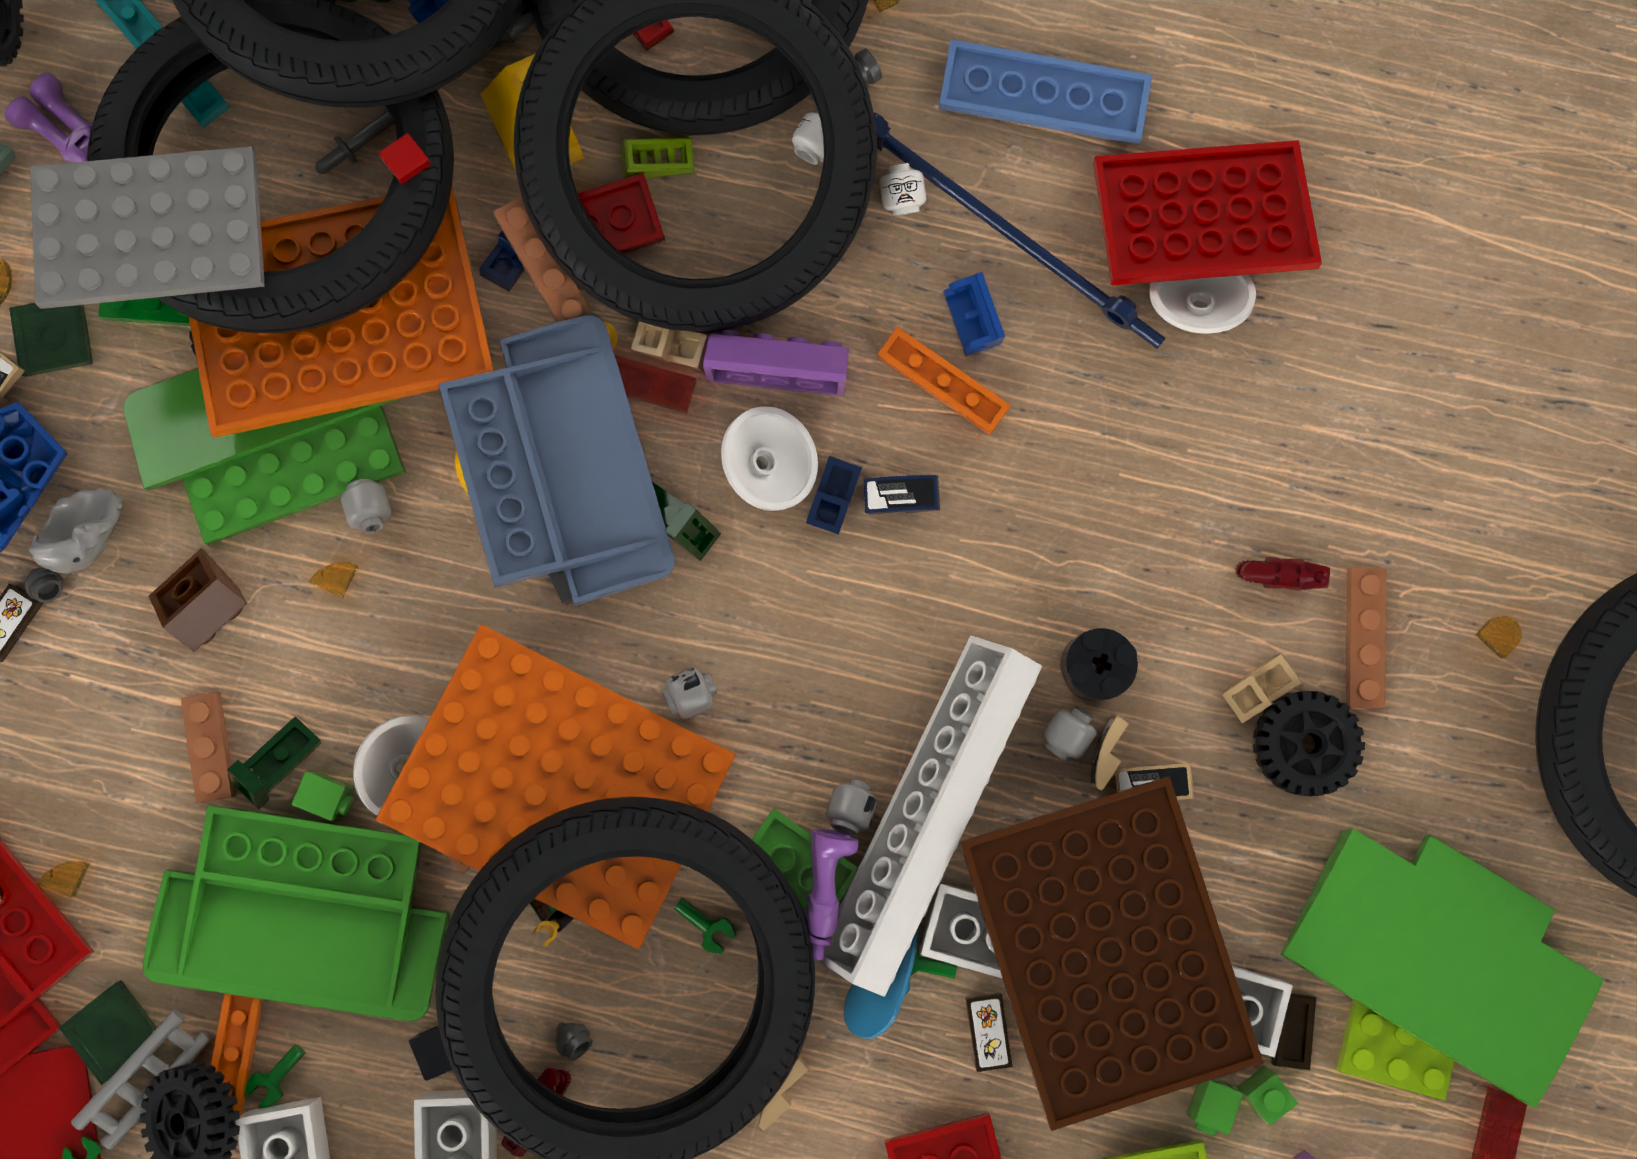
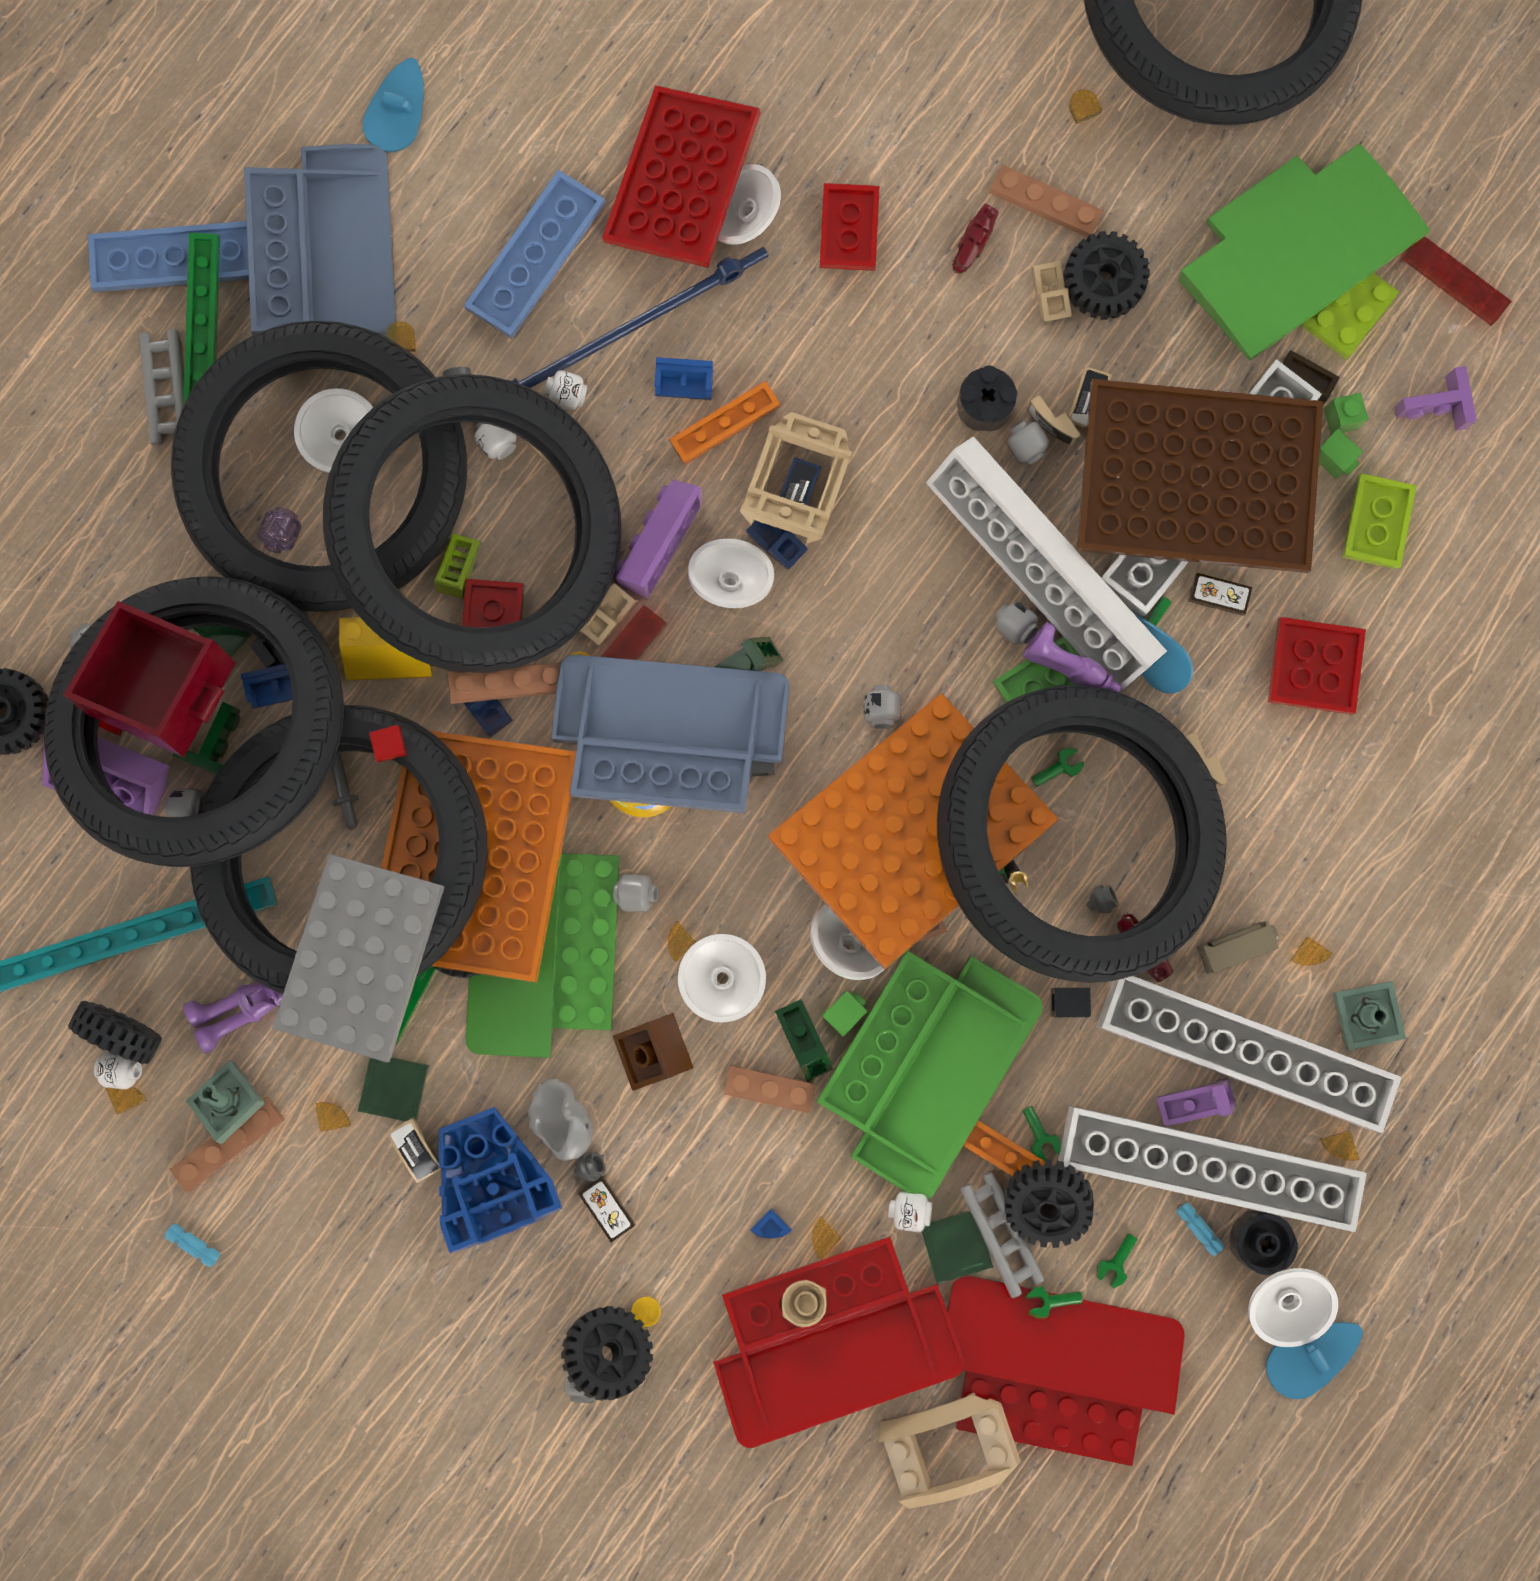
camera: 65 degrees left, 0 degrees up
(55, 813) = (771, 1226): none -> blue tile
(125, 964) = (910, 1211): none -> white head
(282, 638) = (699, 978): none -> white dish
(865, 487) = (785, 512): none -> tan wedge
(1233, 425) = (849, 227): none -> red plate

